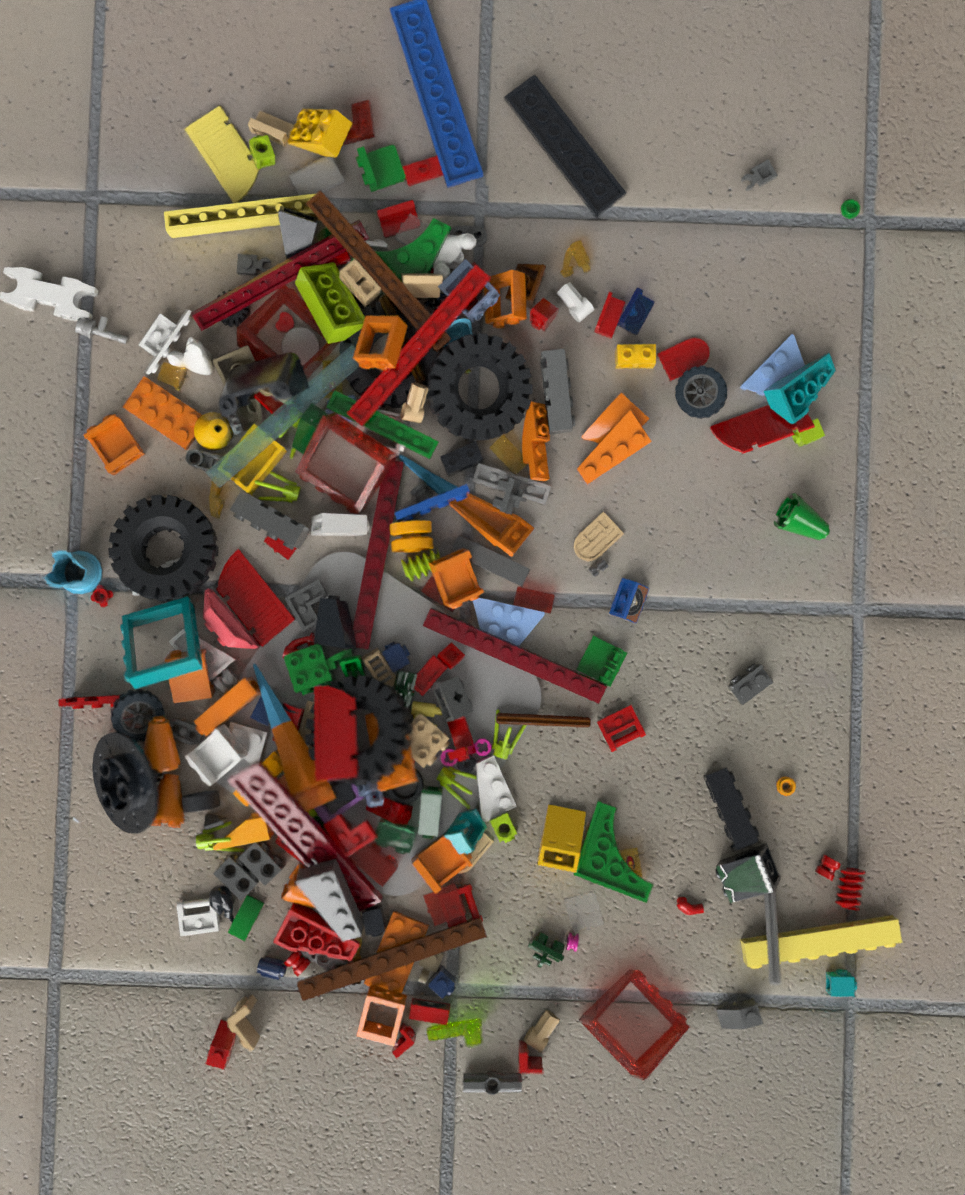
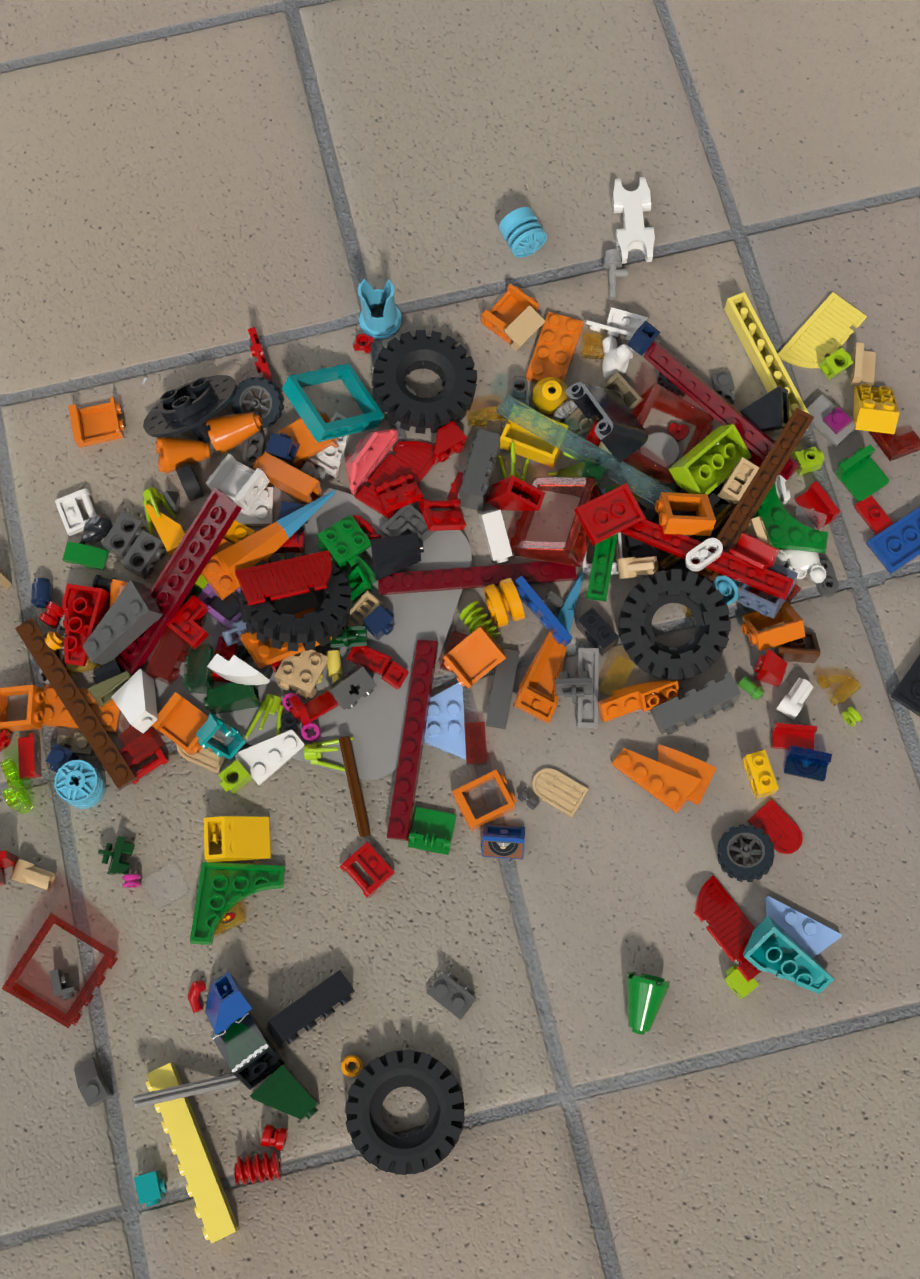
camera: 70 degrees right, 15 degrees down
(30, 406) = (522, 232): none -> medium azure wheel
(109, 877) = (97, 423): none -> orange panel
(134, 435) = (524, 327): none -> tan panel
(184, 324) = (641, 341): none -> dark blue brick
(194, 703) = (282, 447): none -> dark blue brick
(231, 543) = (447, 442): none -> red slope
(277, 604) = (401, 496): none -> red plate
(280, 907) = (103, 583): none -> black bush
(309, 495) = (515, 495): none -> red slope
(312, 568) = (442, 519): none -> red plate
(320, 170) = (837, 420): none -> magenta plate
(326, 965) = (54, 640): none -> light orange plate
(349, 203) = (808, 465): none -> lime brick
(363, 412) = (609, 514): none -> red plate
(390, 926) = (105, 690): none -> olive slope
(410, 900) = (138, 701): none -> white slope
(413, 802) = (237, 671): none -> white slope
(427, 339) = (703, 555): none -> white plate
(436, 290) = (755, 551): none -> red panel
(472, 959) = (90, 787): none -> medium azure wheel
(553, 337) = (751, 688): none -> bright green pin
(575, 587) = (466, 811): none -> orange window
(605, 258) = (851, 716): none -> lime bush
(645, 1026) = (59, 982): none -> dark grey bracket
(706, 882) = (226, 1003): none -> blue slope
(796, 848) = (286, 1094): none -> dark green slope
(873, 750) = (365, 1120): none -> black tyre

